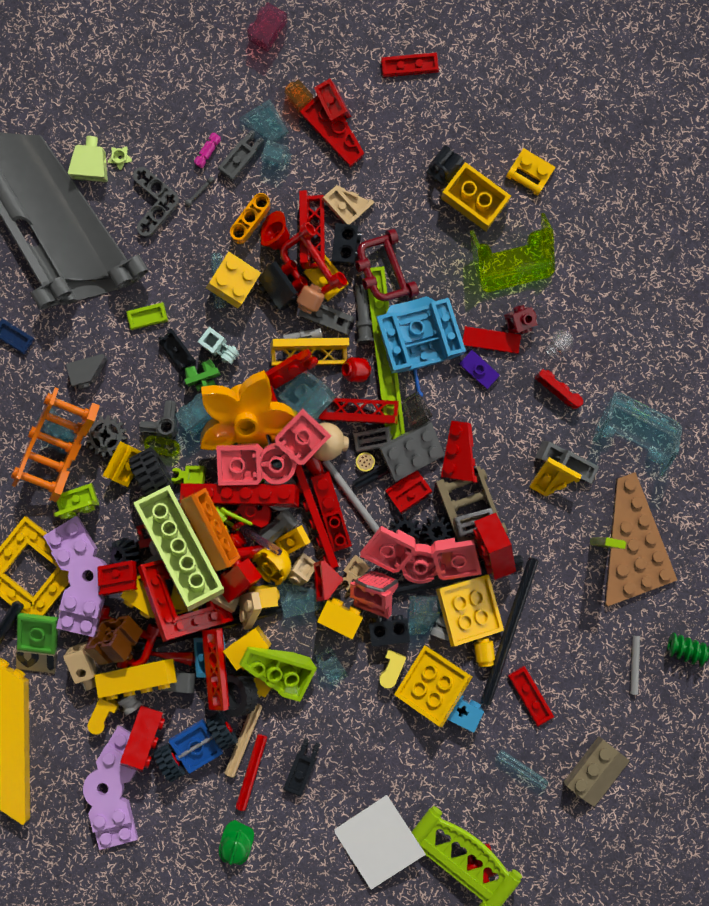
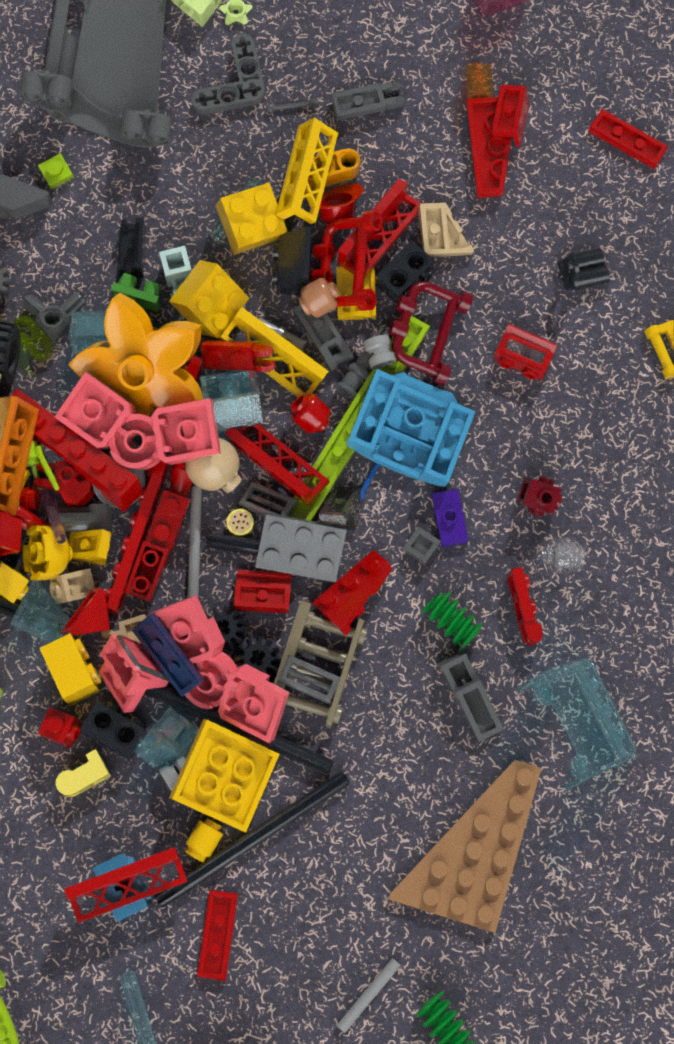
camera: 35 degrees right, 10 degrees down
(93, 336) = (55, 171): none -> lime plate
(147, 316) = (129, 192): lime tile -> none
(192, 474) = (39, 390): lime plate -> none
(207, 150) = (334, 69): dark pink axle -> none
(239, 228) = (299, 167): none -> yellow fence
(248, 347) = (209, 298): none -> yellow brick
(266, 121) = (422, 85): clear light blue wing -> none
(276, 154) = (404, 125): clear light blue brick -> none
(332, 667) = (17, 721): clear light blue bracket -> none
(359, 653) = (60, 727): none -> red brick
(369, 304) = (379, 351): none -> light grey wheel
(388, 569) = (167, 654): none -> dark blue tile
(433, 686) = (112, 829): yellow plate -> none
(449, 240) = (525, 352): none -> red window
(460, 707) = (122, 874): none -> red fence
(475, 196) = (591, 325): yellow brick -> none
(476, 397) = (421, 545): none -> dark grey plate
(491, 340) = (489, 496): red tile -> none
(494, 546) = (306, 719): red brick -> none
(518, 264) = (578, 433): clear neon green windscreen -> none
(526, 426) = (453, 619): none -> green piece
(553, 477) = (439, 698): yellow wing -> none
(608, 542) = (441, 814): lime tile -> none

